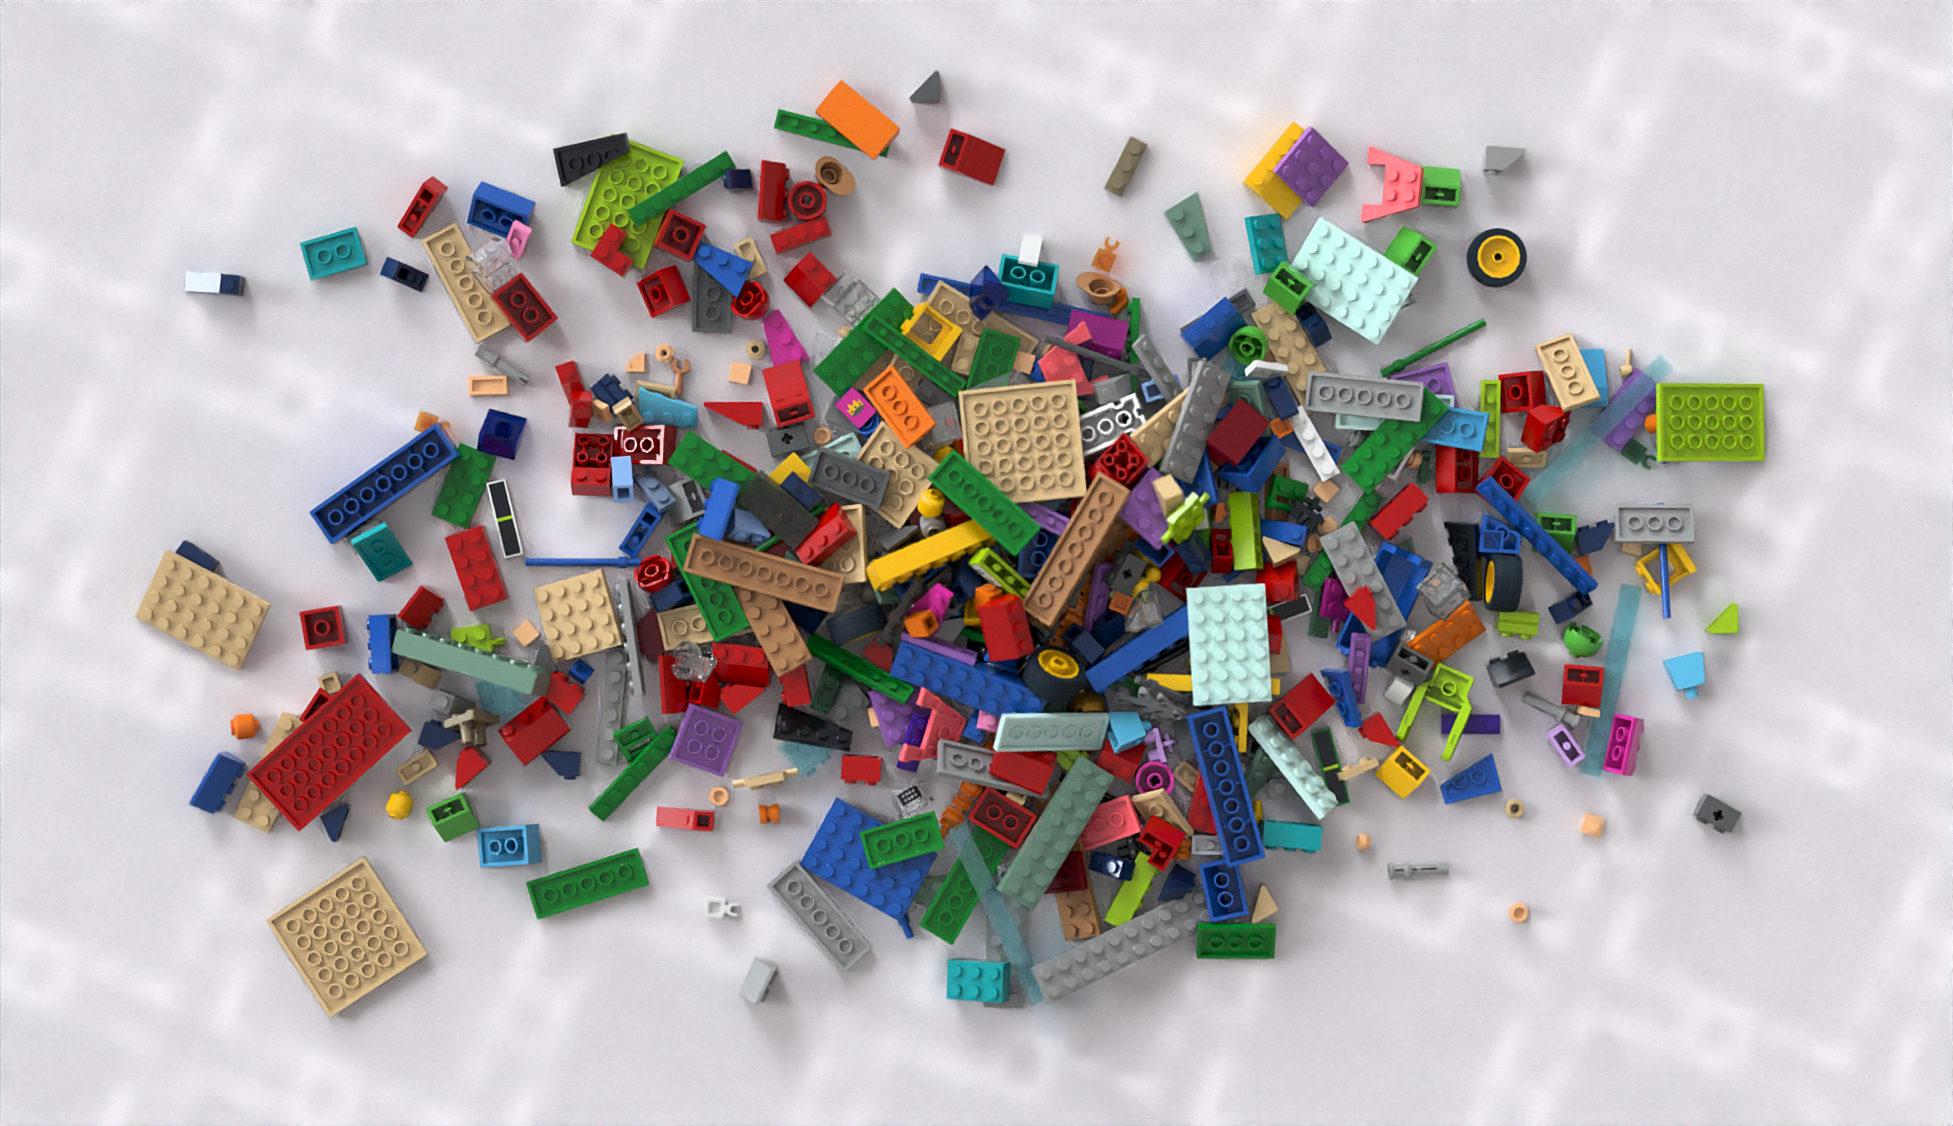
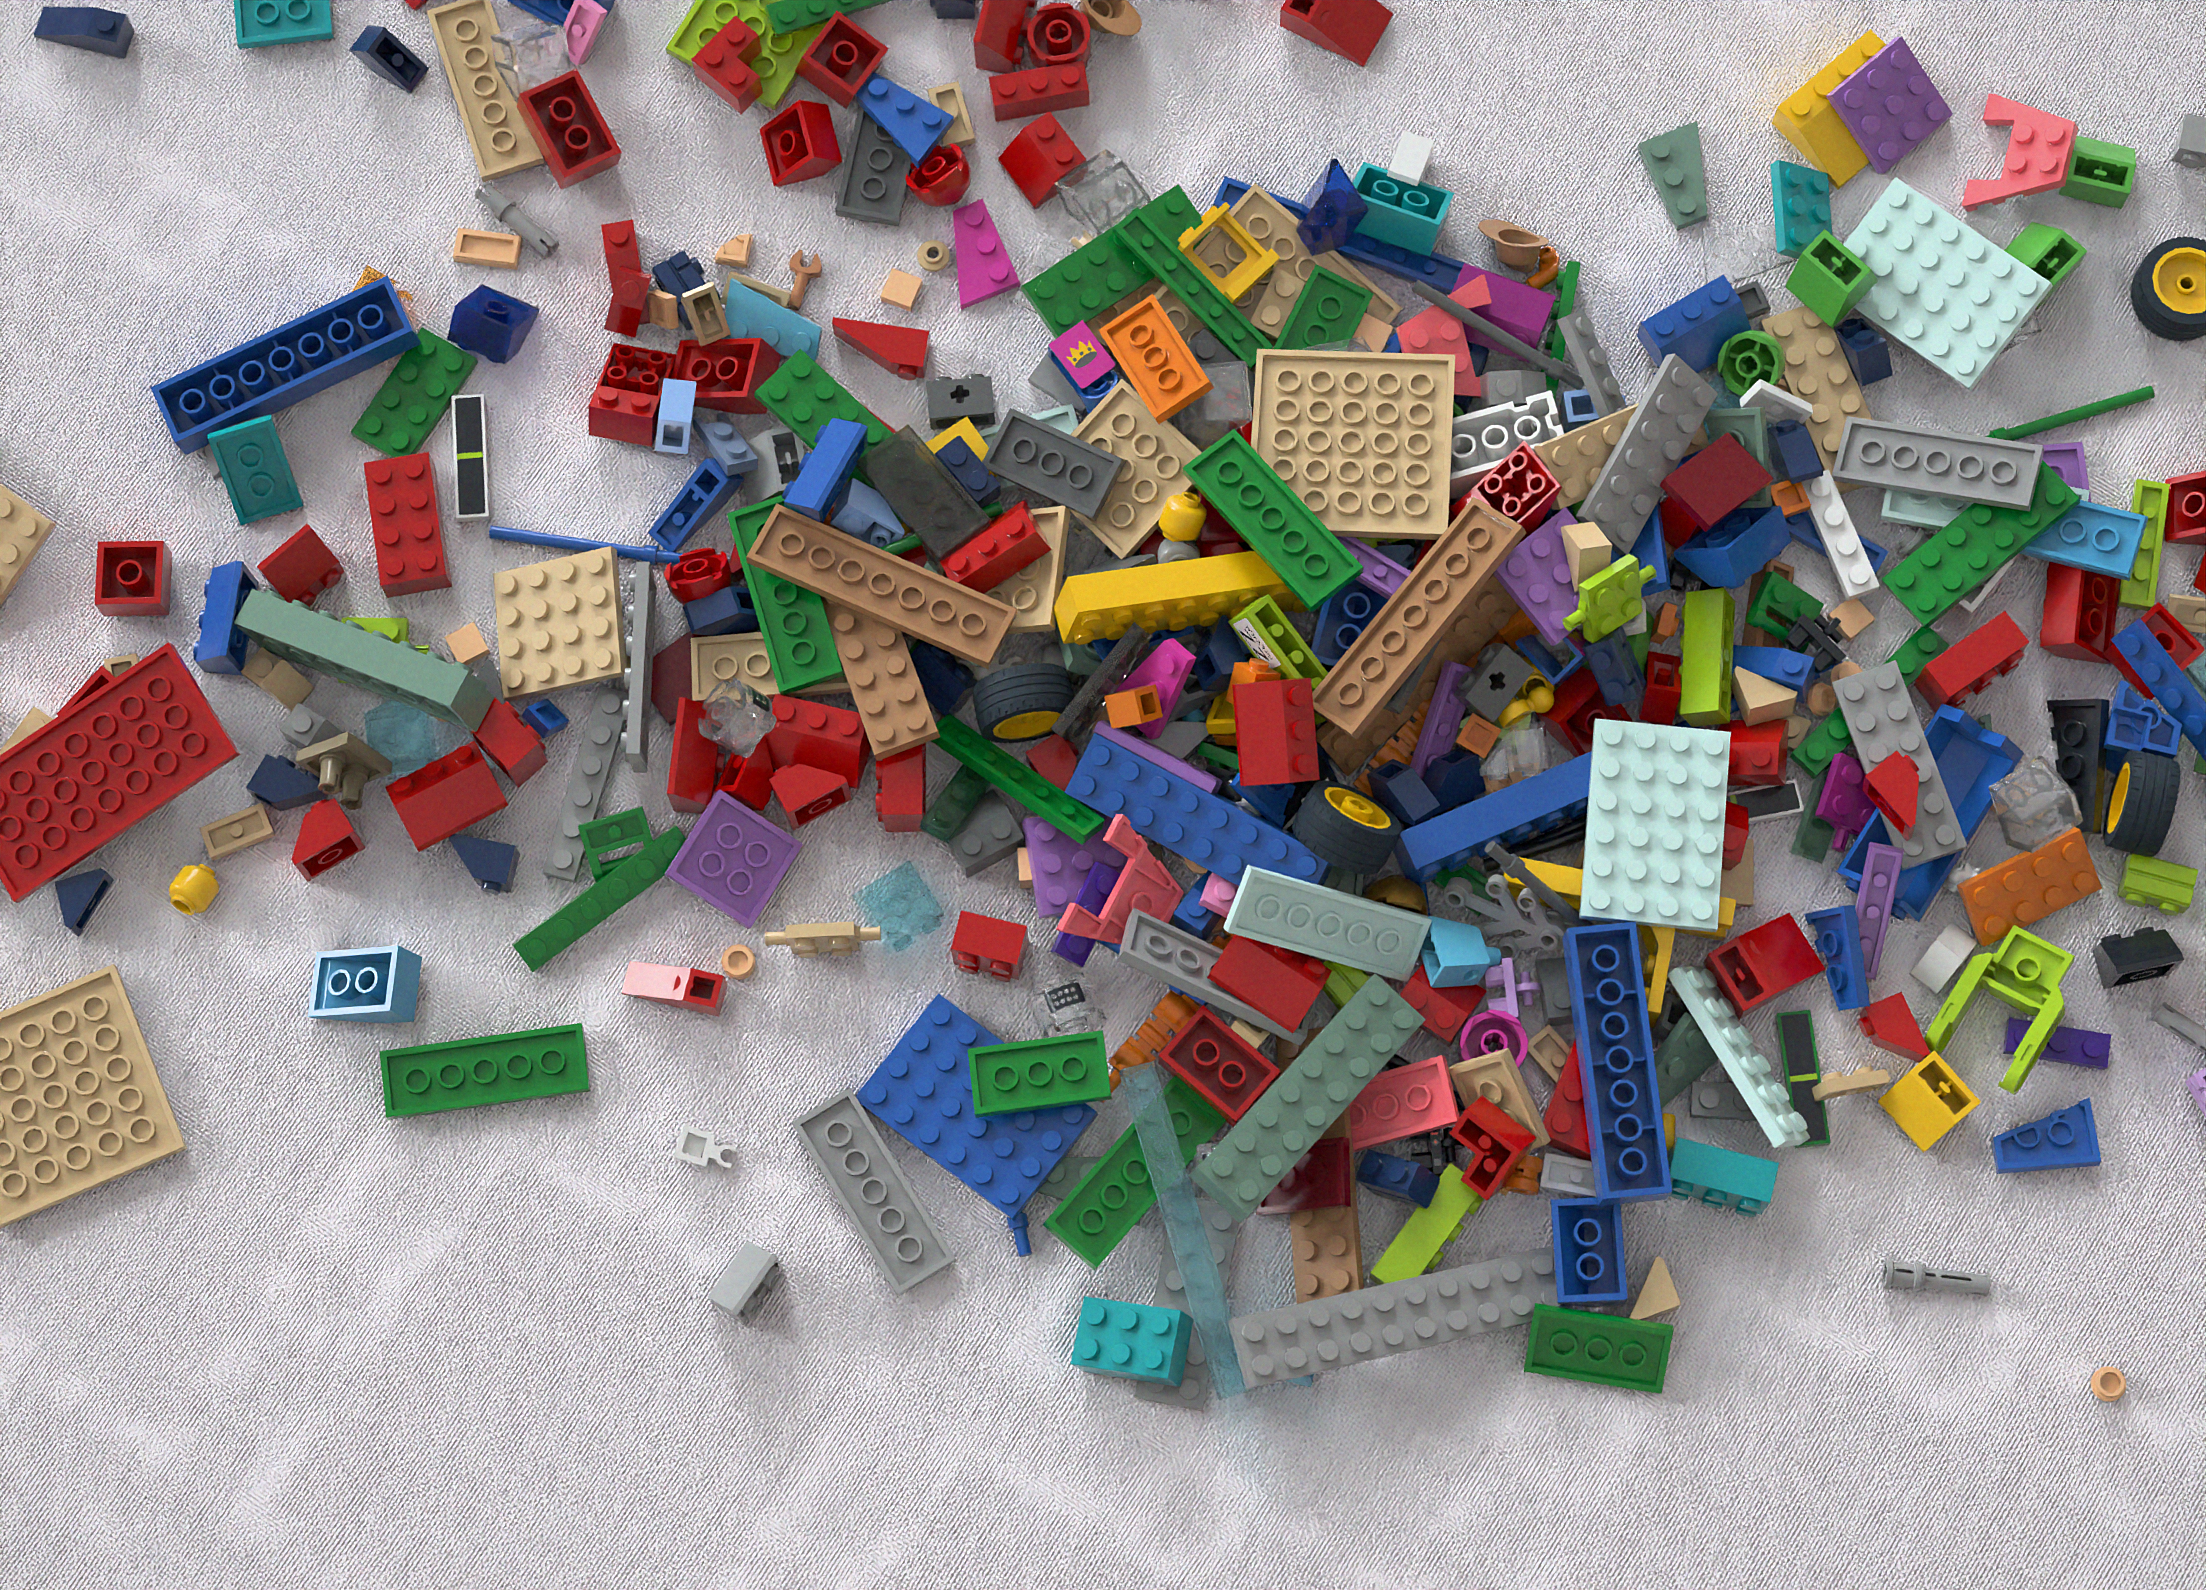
camera: 10 degrees right, 15 degrees down
(453, 817) = (279, 920): bright green slope -> none
(664, 348) = (784, 248): light nougat plate -> none
(769, 813) = (818, 1002): orange wheel -> none
(788, 393) = (975, 327): red slope -> none
(807, 729) = (910, 868): black wing -> none
(822, 436) = (1021, 402): light nougat plate -> none
(1104, 257) = (1531, 199): clear orange plate -> none
(1125, 166) = (1585, 68): dark tan plate -> none
(1177, 884) = (1508, 1231): dark blue slope -> none
(1363, 842) = (1844, 1215): light nougat plate -> none
(1409, 664) = (1963, 916): dark grey brick -> none
(1414, 460) = (2008, 589): light nougat plate -> none
(1424, 472) = (2023, 614): clear green plate -> none
(1519, 812) = (2128, 1195): tan plate -> none

